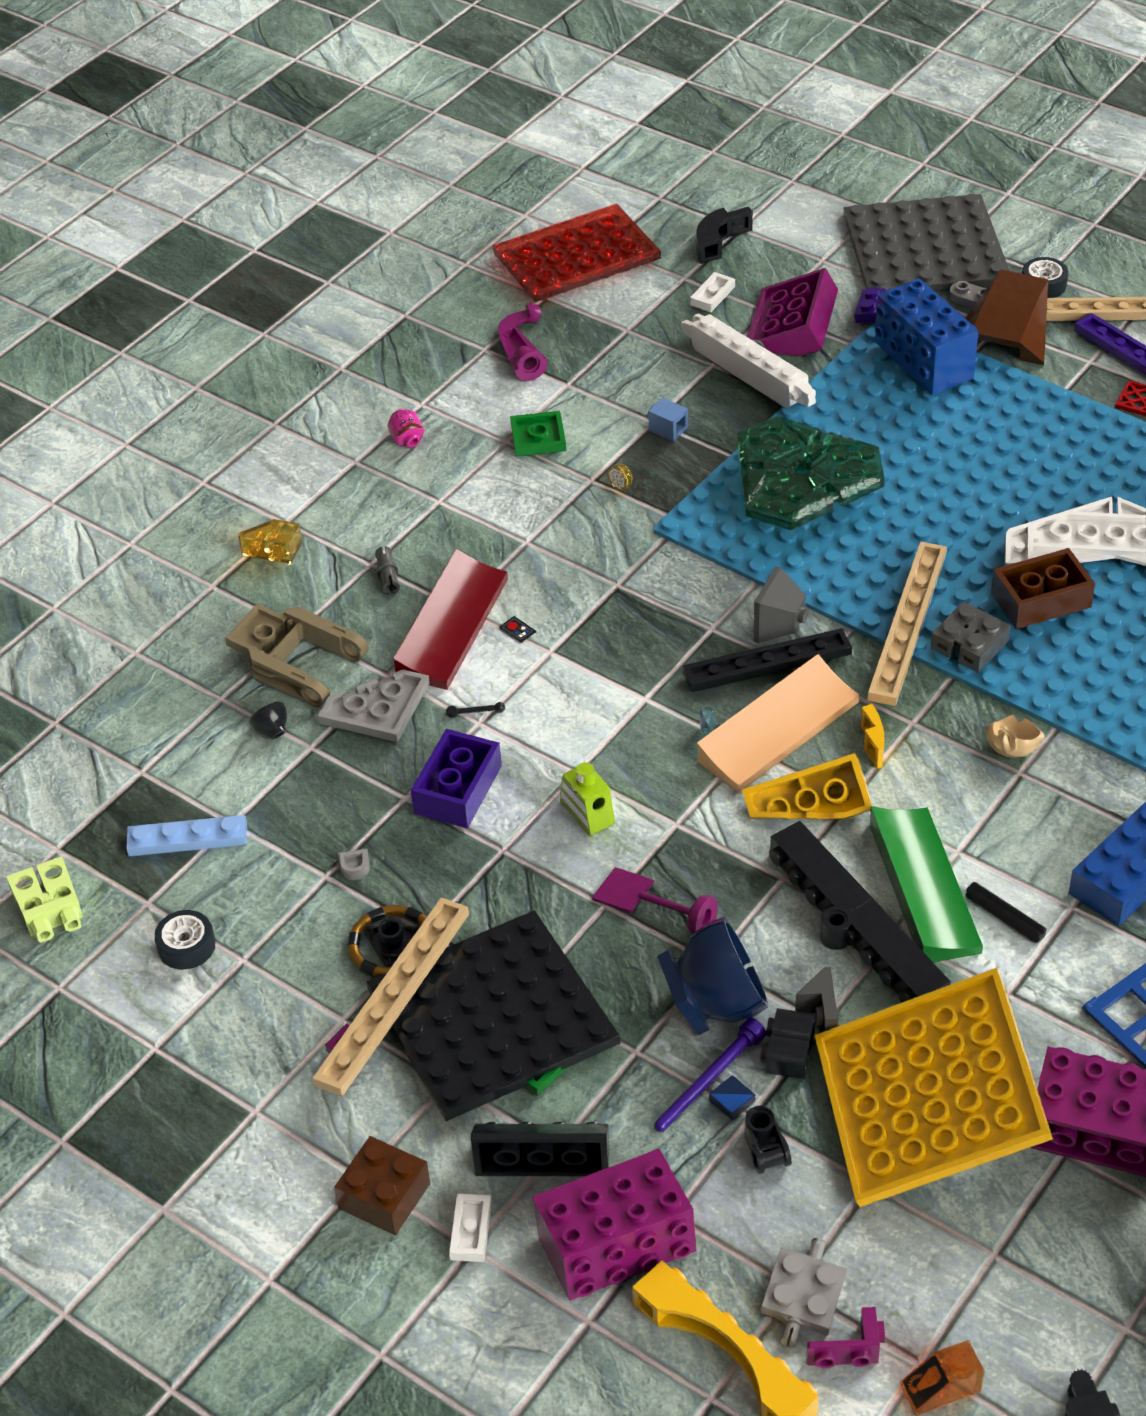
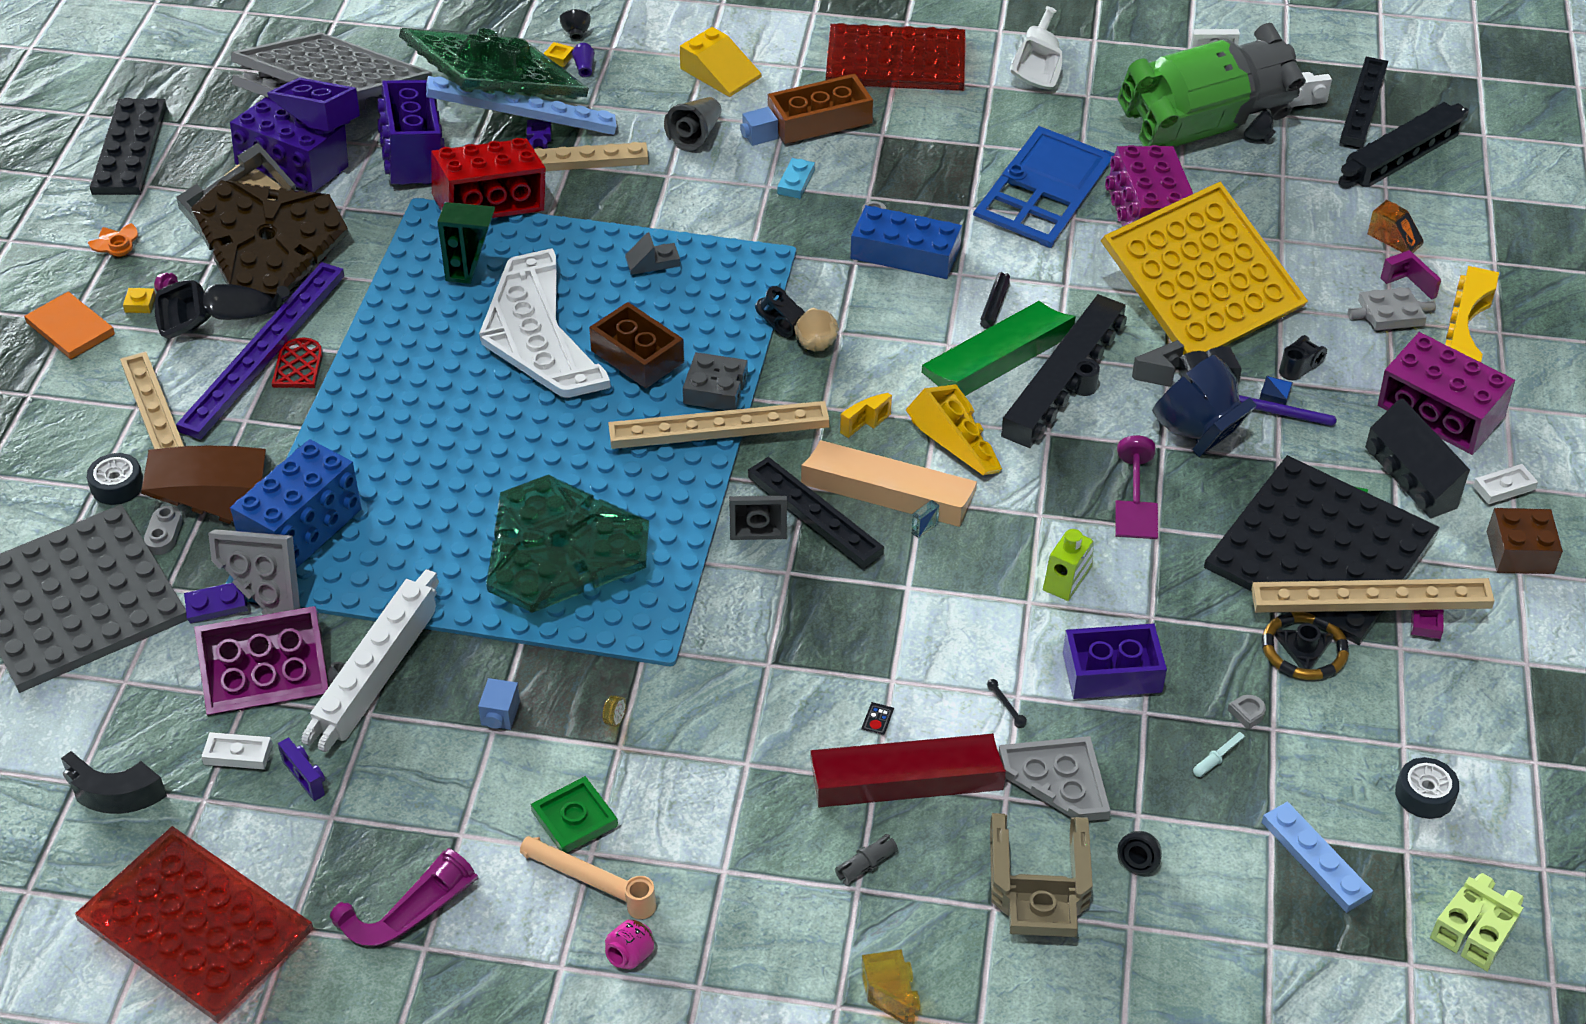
camera: 120 degrees left, 0 degrees up
(323, 816) = (1215, 757): none -> light aqua piece
(442, 439) = (628, 891): none -> light nougat piece
(671, 314) = (298, 764): none -> dark purple plate
(862, 310) = (260, 566): none -> light grey plate
(1054, 719) = (781, 313): none -> black piece

